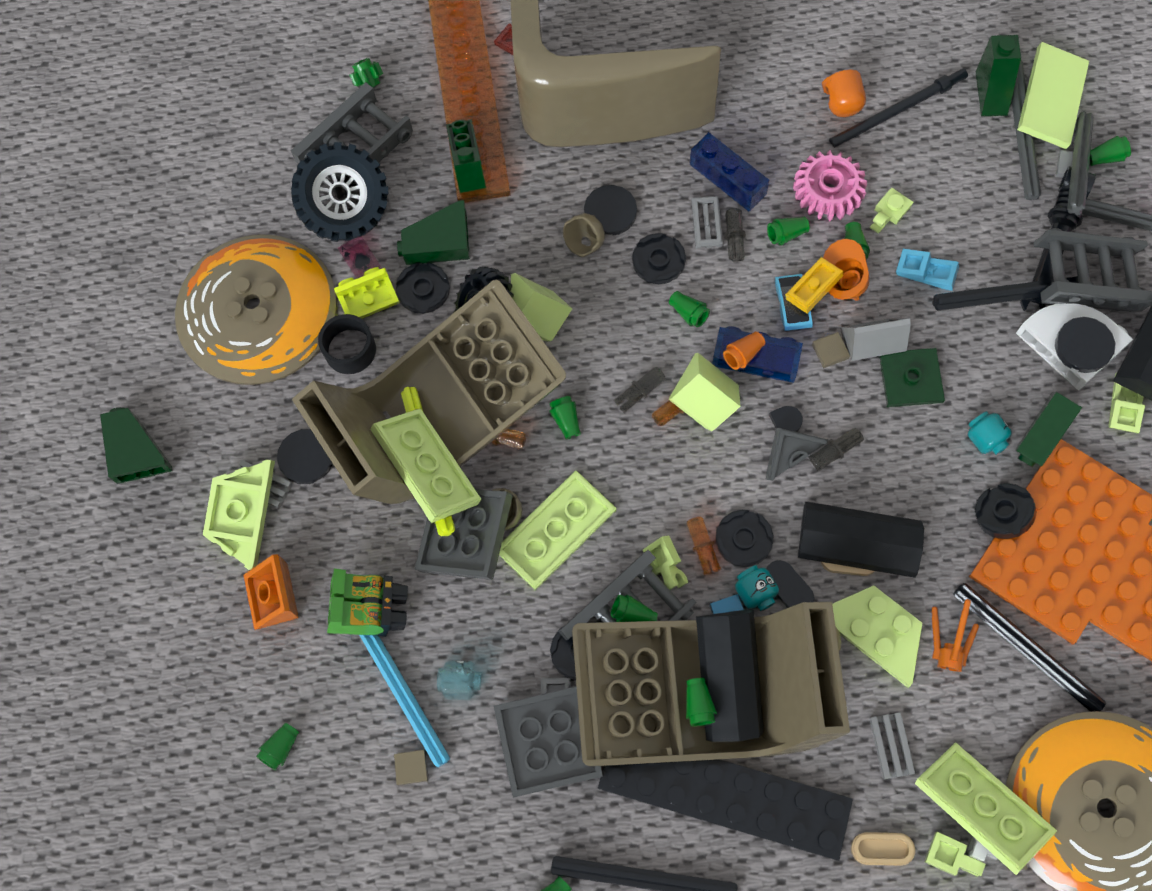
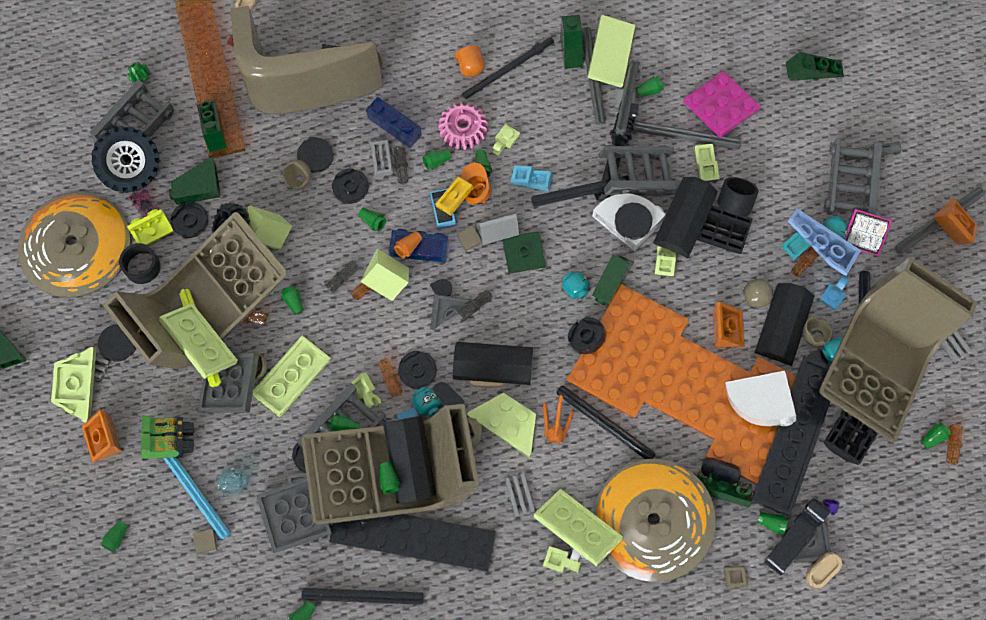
camera: 10 degrees left, 0 degrees up
(883, 849) = (516, 561): tan tile -> none

